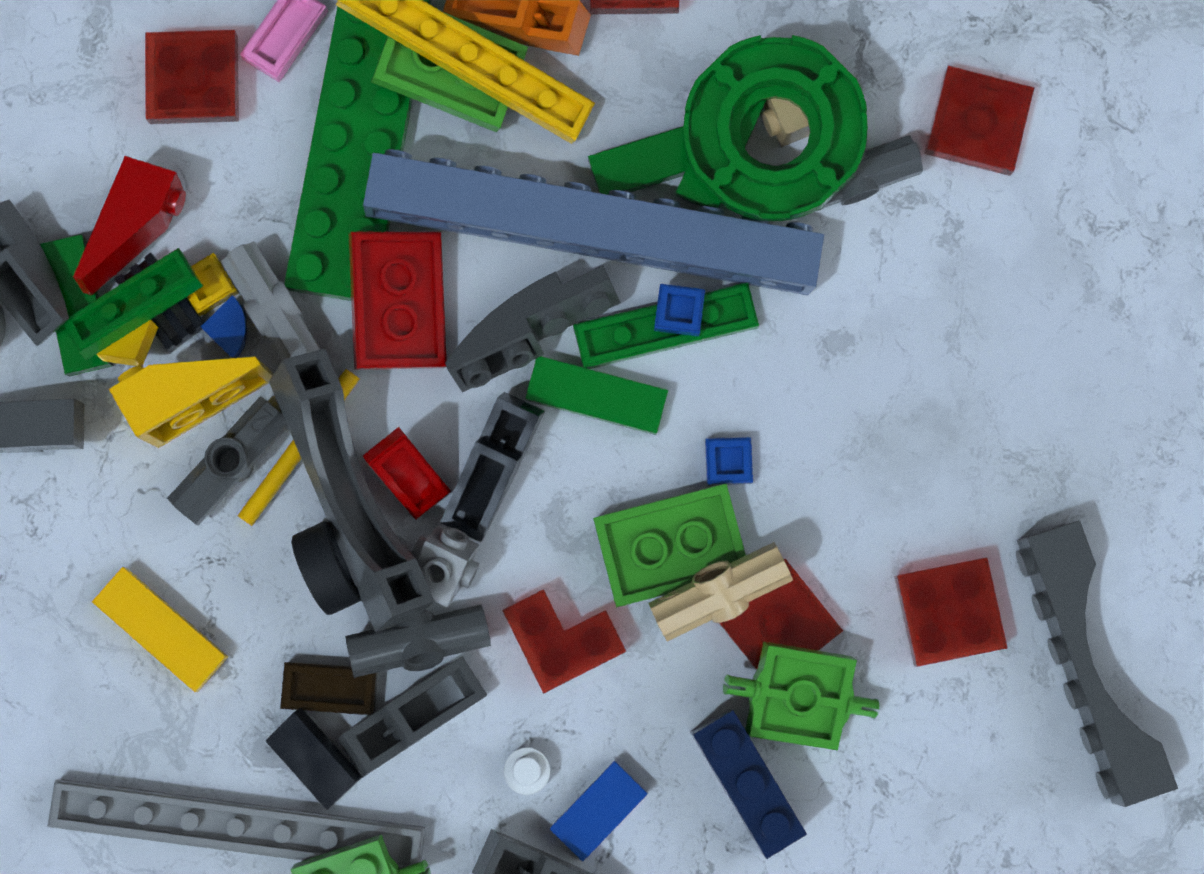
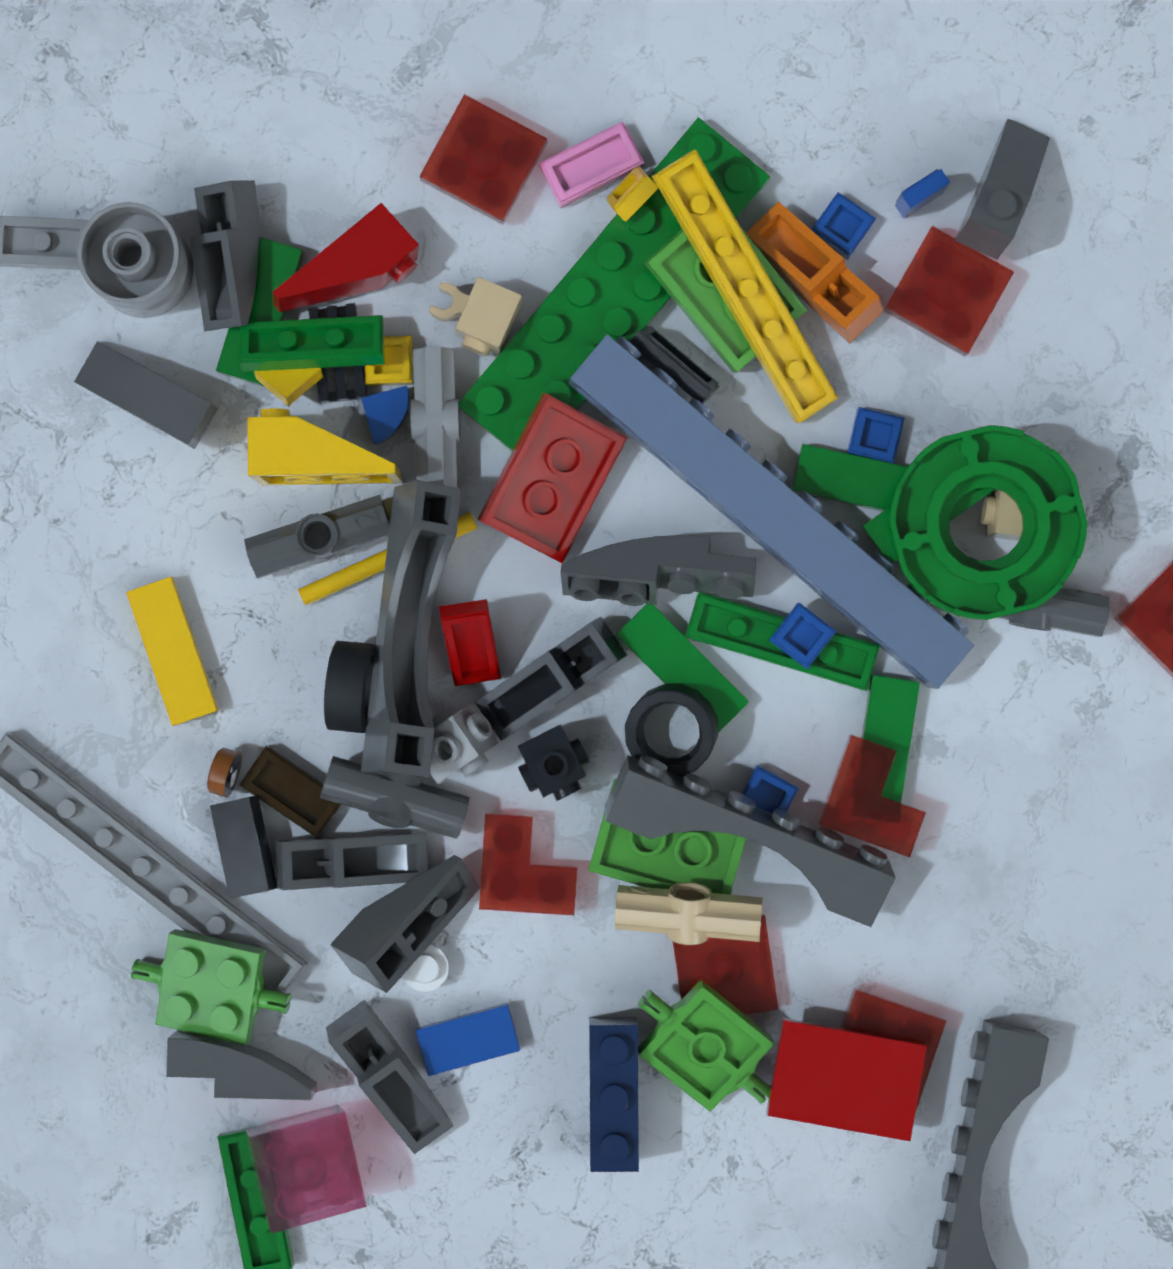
camera: 30 degrees right, 5 degrees up
(261, 704) = (224, 772): none -> dark orange tile
(265, 201) = (484, 315): none -> tan brick
(329, 34) = (631, 193): none -> yellow tile
(459, 152) = (675, 364): none -> black tile
(485, 747) = (402, 924): none -> dark grey slope
(522, 520) = (553, 743): none -> black brick
(608, 483) = (683, 696): none -> black tyre
(642, 512) = (663, 803): none -> dark grey arch
(643, 115) = (875, 435): none -> blue tile
(801, 364) = (890, 724): none -> green tile
(806, 421) = (856, 802): none -> clear red plate
(934, 654) = (846, 1079): none -> red tile

